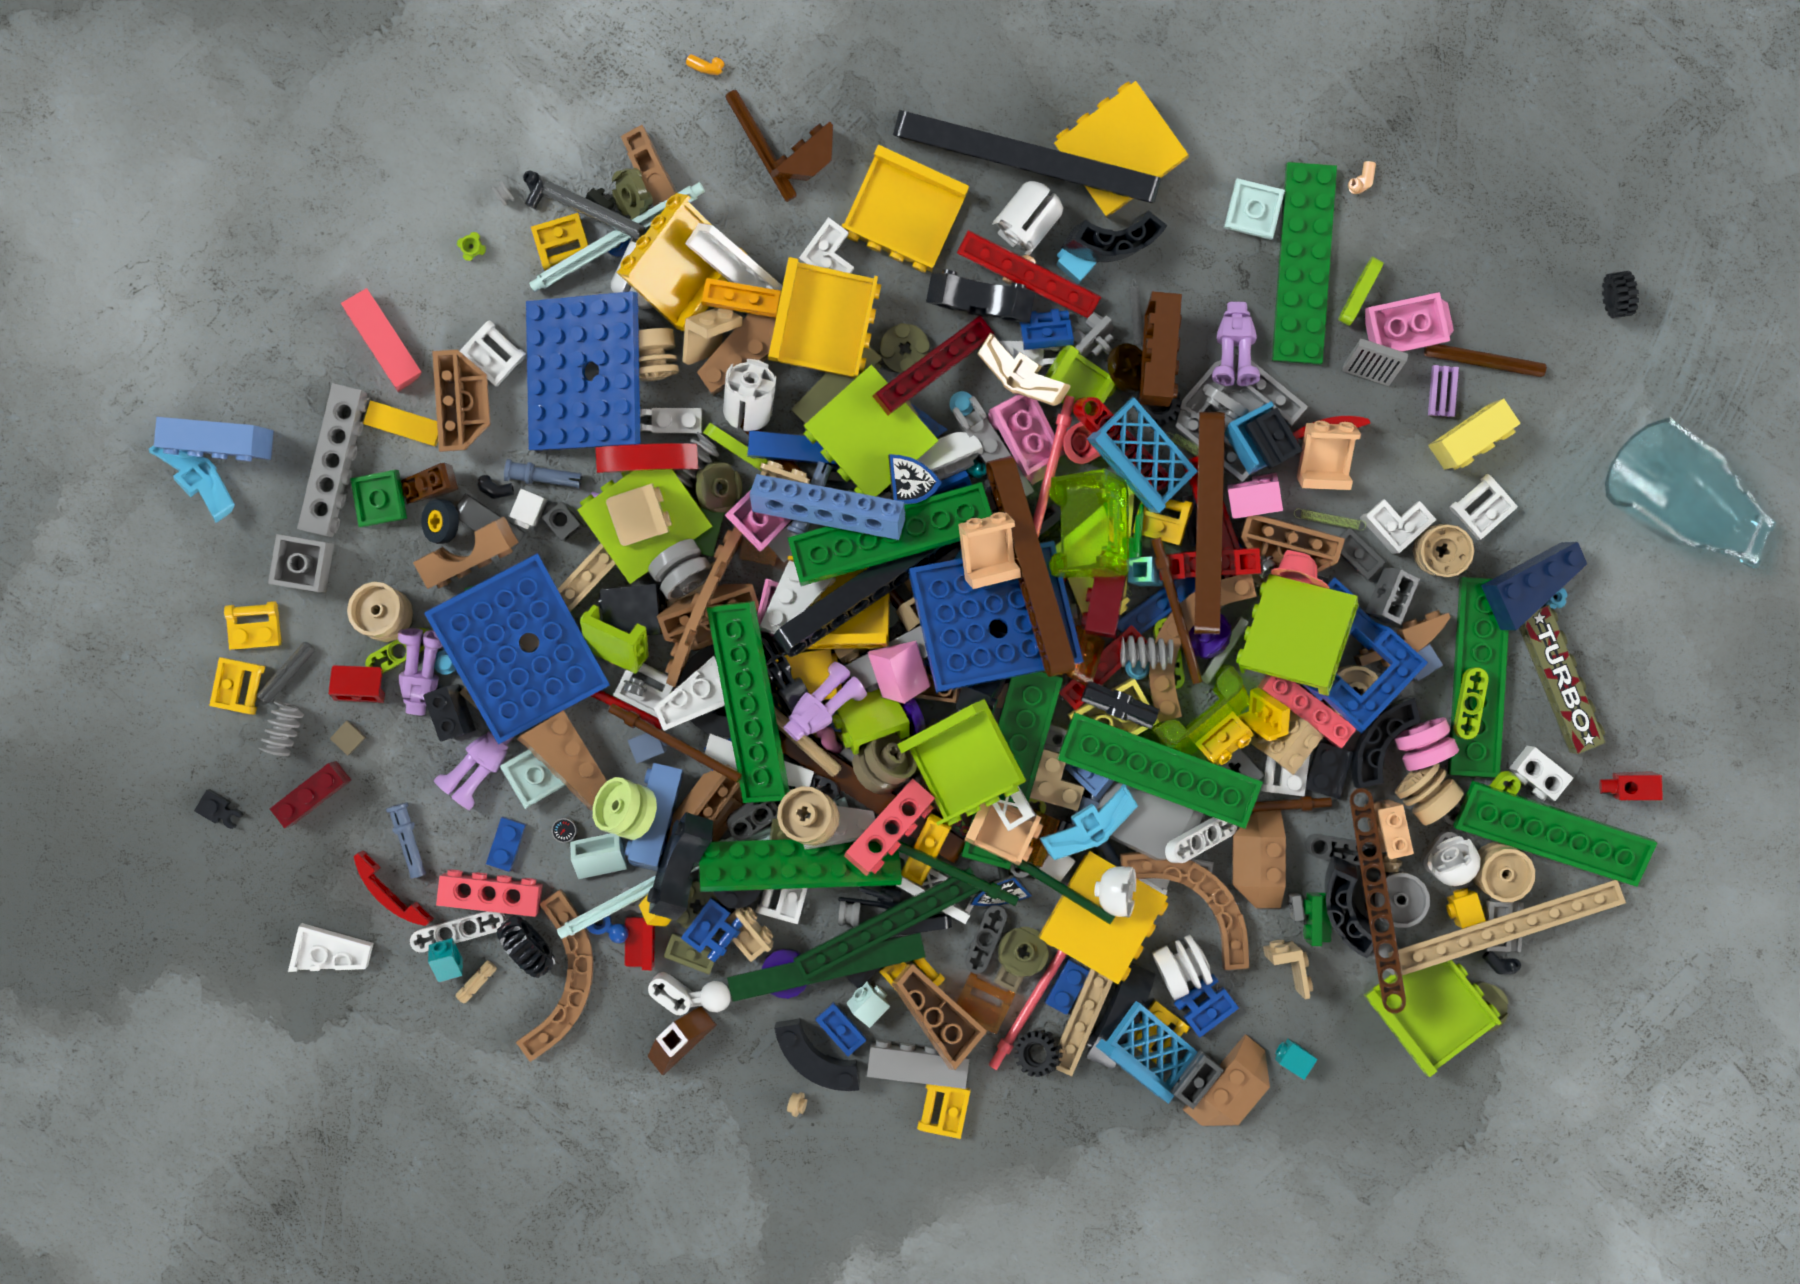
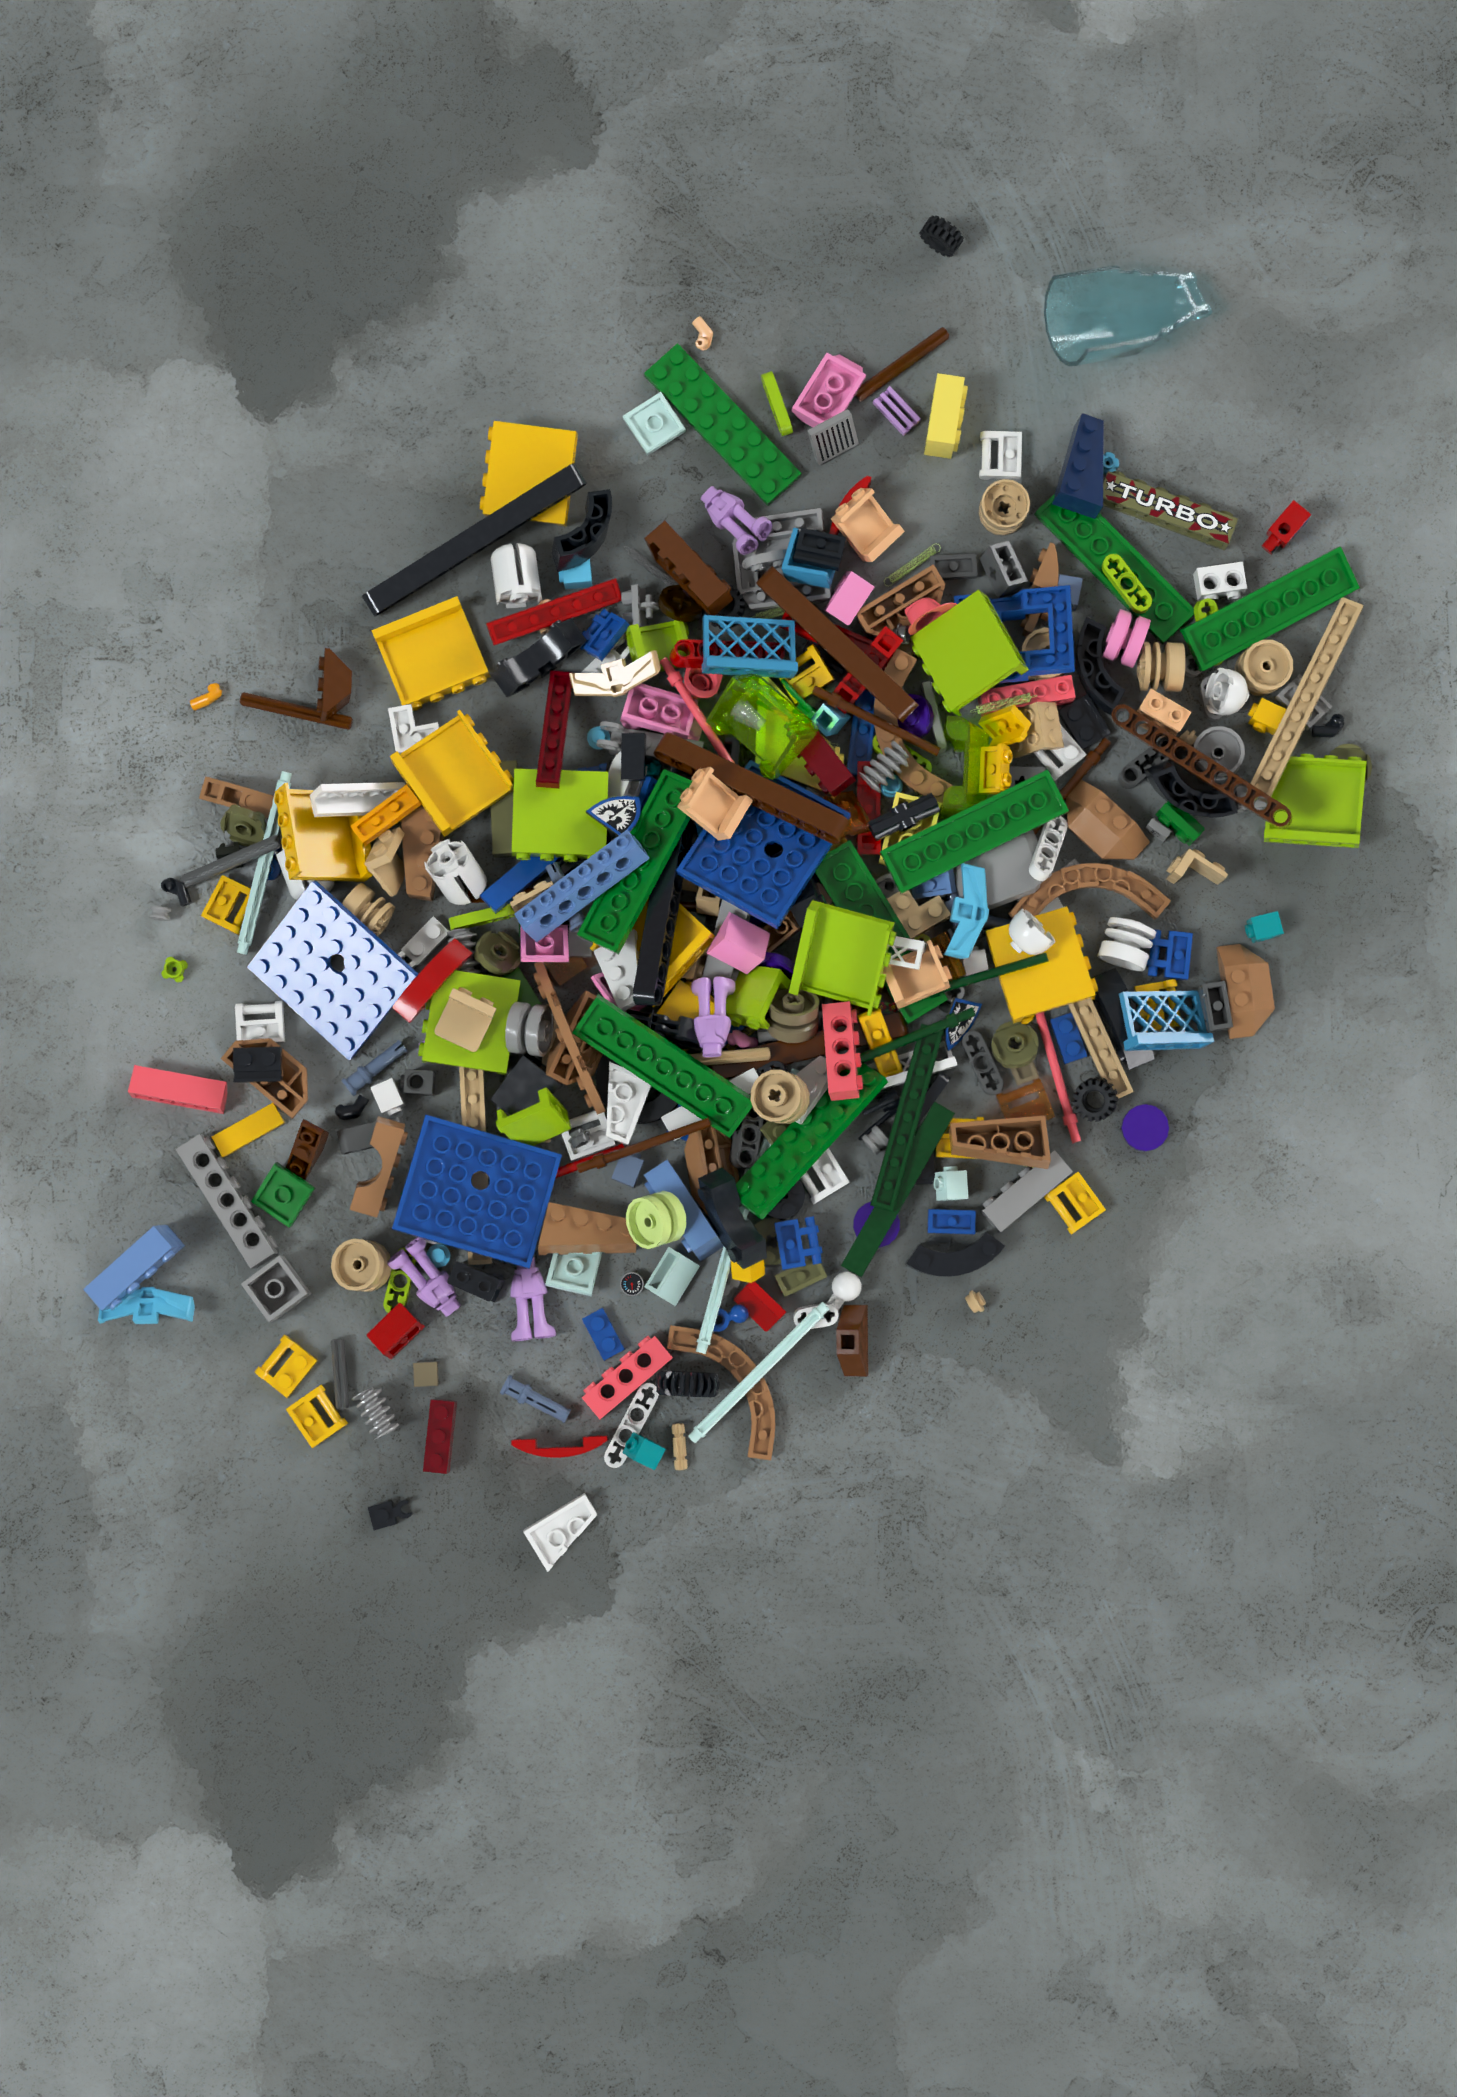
camera: 40 degrees left, 5 degrees down
(440, 521) = (341, 1156): black bush -> none
(454, 384) = (257, 1064): none -> black plate
(586, 992) = (758, 1372): none -> light aqua piece
(753, 938) = (830, 1221): tan bracket -> none
(903, 334) = (513, 734): olive plate -> none
(969, 448) = (633, 757): none -> black tile
(1052, 1108) = (1145, 1127): none -> dark purple tile
(1086, 507) = (746, 714): none -> clear cone
(1286, 698) = (991, 709): none -> yellowish green piece
(1397, 531) = (960, 527): white panel -> none

